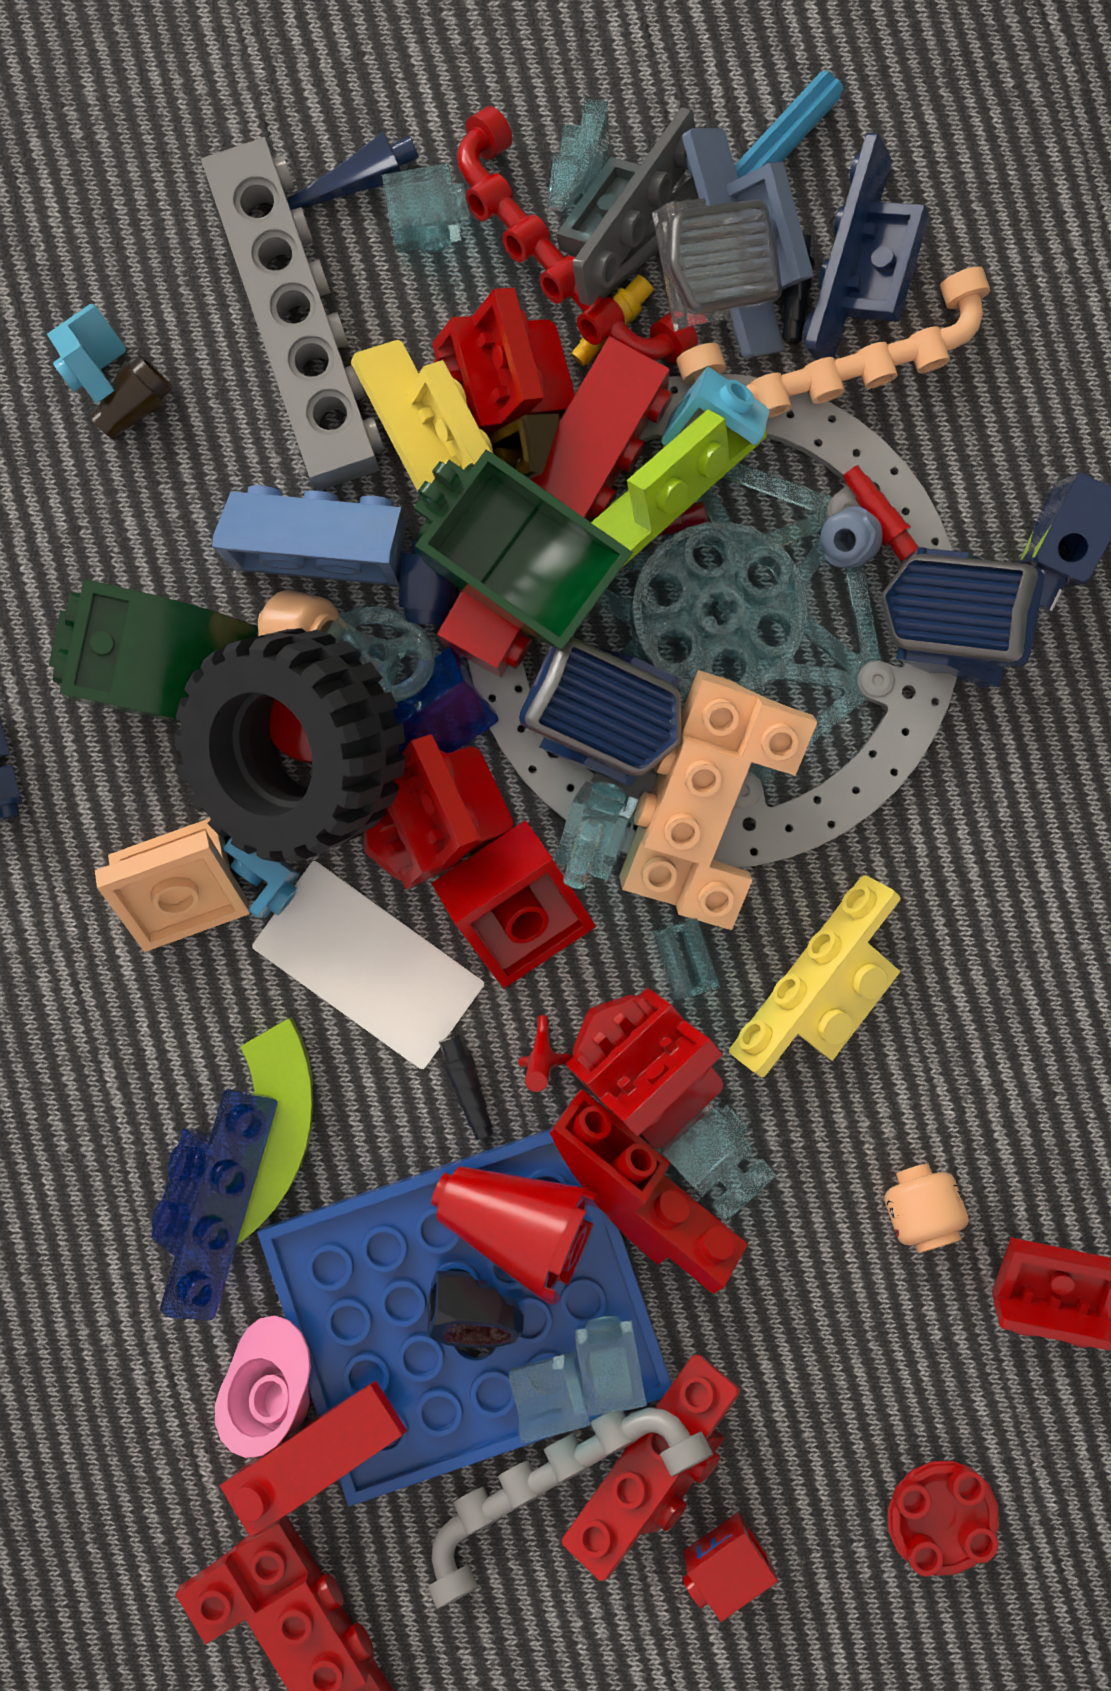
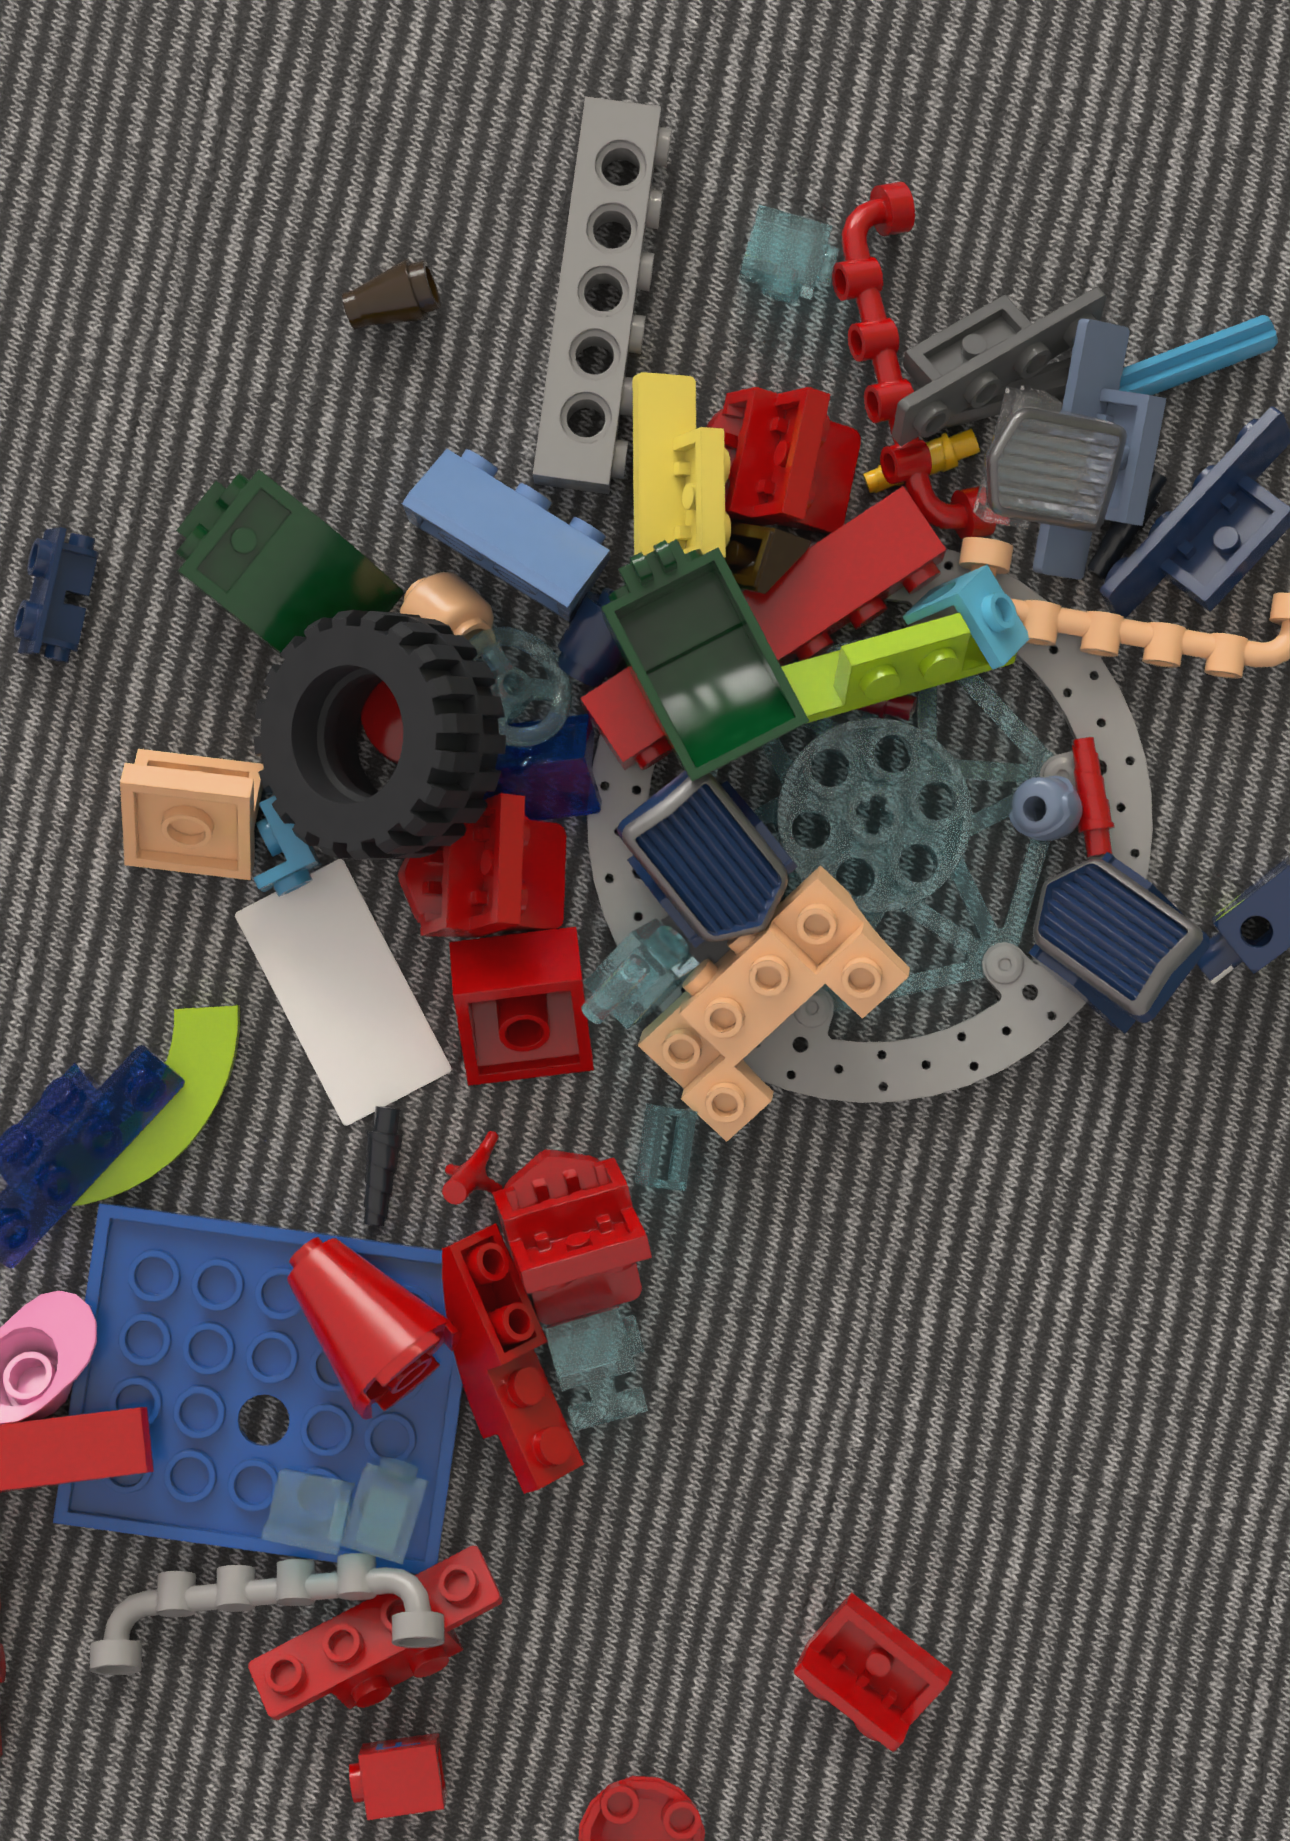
camera: 20 degrees right, 0 degrees up
(86, 347) = (372, 221): medium azure bracket -> none
(358, 172) = (757, 180): dark blue piece -> none
(471, 1312) = (274, 1389): black rock -> none
(581, 156) = (967, 288): clear light blue slope -> none
(828, 985) = (797, 1248): light yellow bracket -> none
(926, 1208) = (781, 1520): light nougat head -> none

